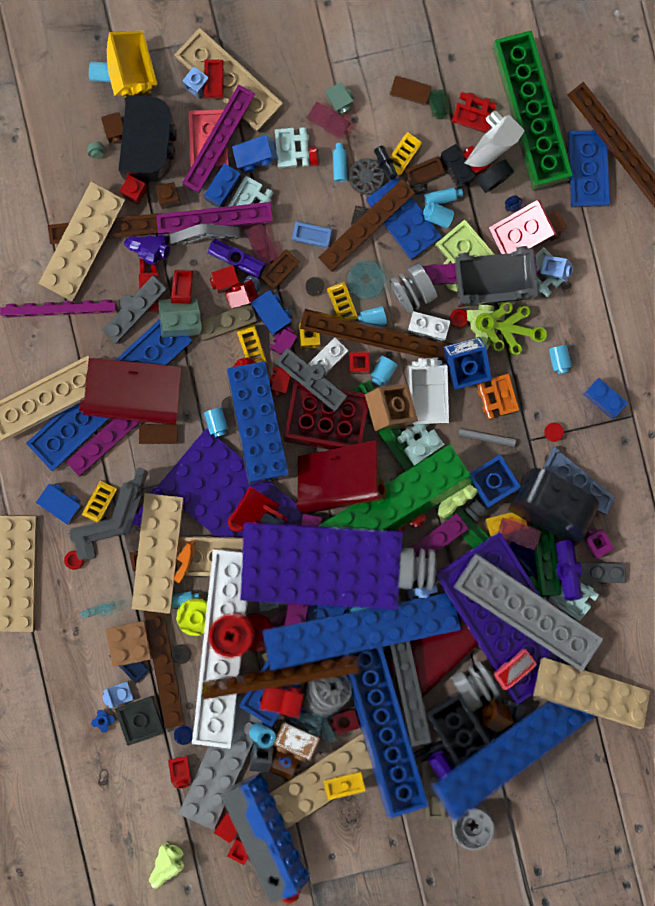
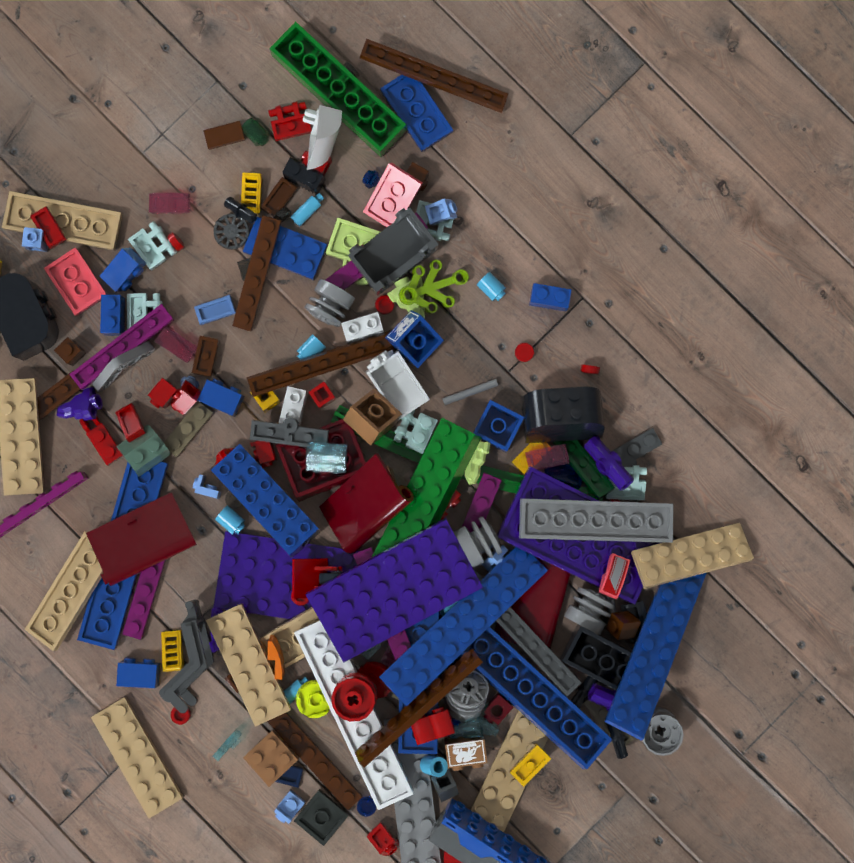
camera: 30 degrees left, 0 degrees up
(108, 719) = (289, 842): blue plate -> none
(133, 189) = (37, 364): red brick -> none
(134, 308) = (100, 466): dark grey hinge -> none
(158, 434) = (187, 561): reddish brown tile -> none
(181, 654) = (322, 737): clear smoke tile -> none
(213, 385) = (209, 490): none -> light blue bracket
(218, 139) = (84, 276): magenta plate -> none
(241, 332) = (220, 426): yellow slope -> none
(247, 263) = (150, 370): dark purple piece -> none
(283, 341) = (245, 415): magenta brick -> none
(285, 765) = (469, 779): reddish brown brick -> none
(314, 286) = (244, 352): clear smoke tile -> none
(331, 418) = (326, 457): none -> clear light blue brick
(339, 98) = (167, 179): sand green brick -> none
(340, 163) = (202, 234): medium azure cylinder -> none
(342, 286) = (264, 342): yellow slope -> none
(359, 271) = (284, 331): clear light blue plate -> none
(383, 371) = (347, 389): medium azure brick -> none
(431, 810) = (618, 742): none -> black axle
(438, 214) = (312, 227): medium azure brick -> none
(475, 511) = (498, 460): dark grey wheel -> none
(495, 176) = (341, 164): black tyre -> none
(503, 394) = (462, 347): orange plate -> none
(566, 469) = (556, 378): sand blue wing -> none
(602, 481) = (590, 369): none -> red tile
(605, 545) = (626, 423): magenta brick -> none

